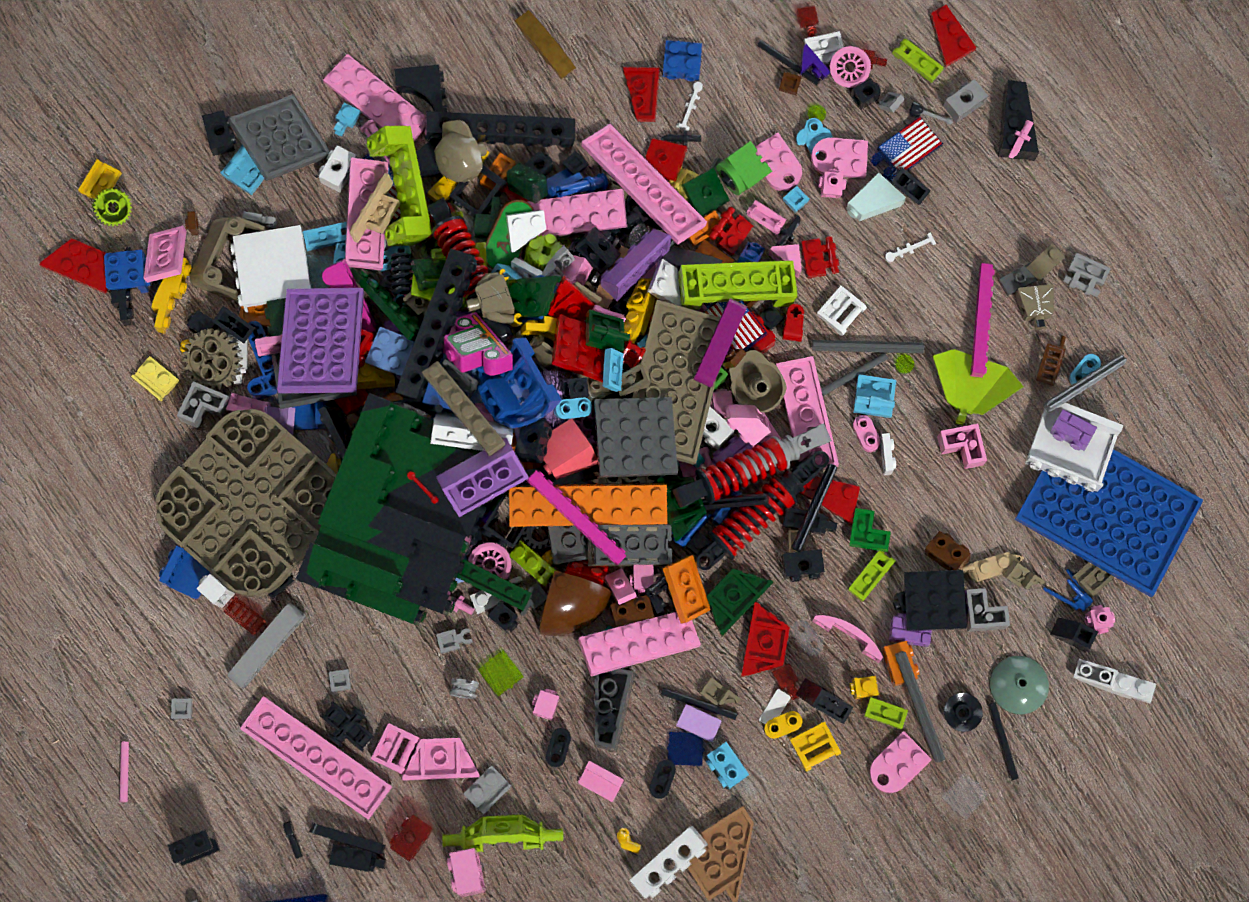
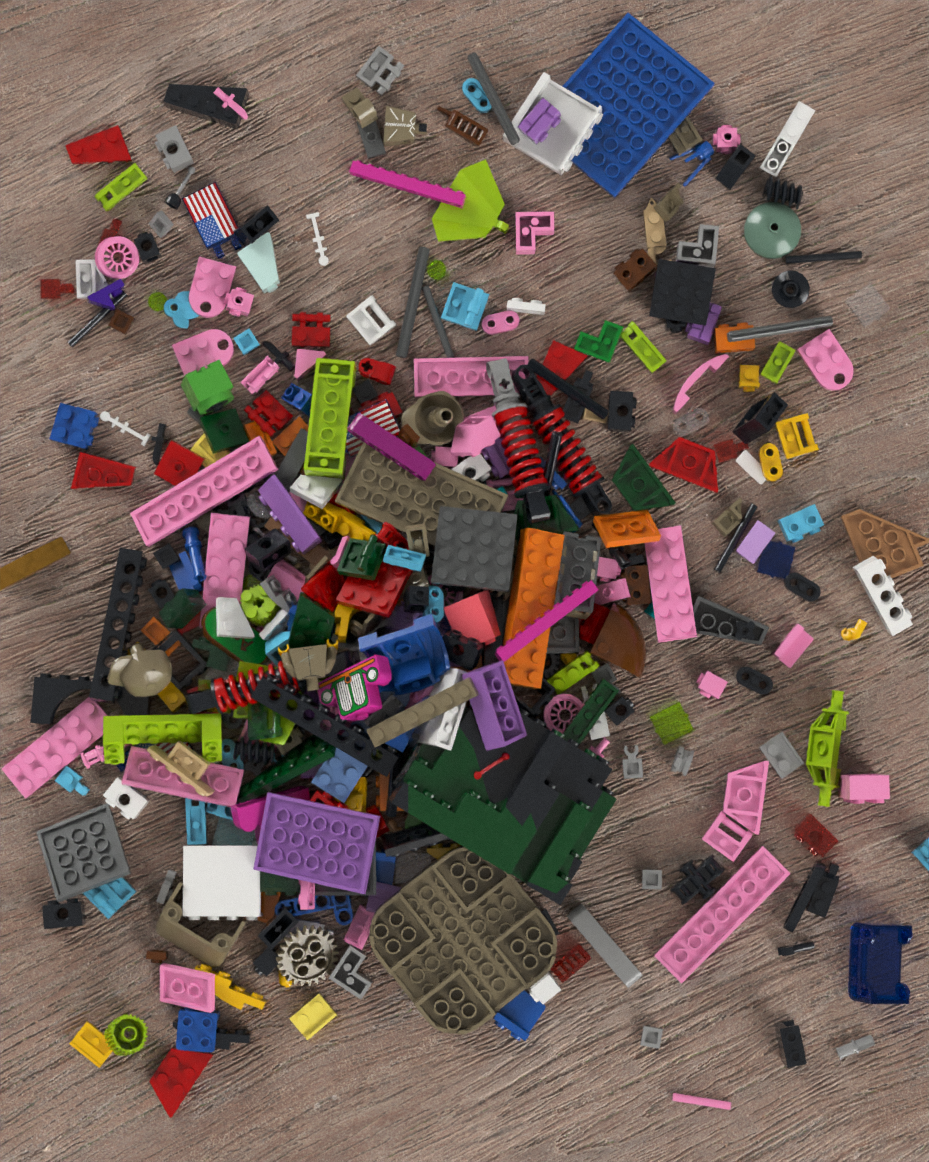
camera: 70 degrees left, 10 degrees up
(1059, 686) = (783, 192): none -> black piece

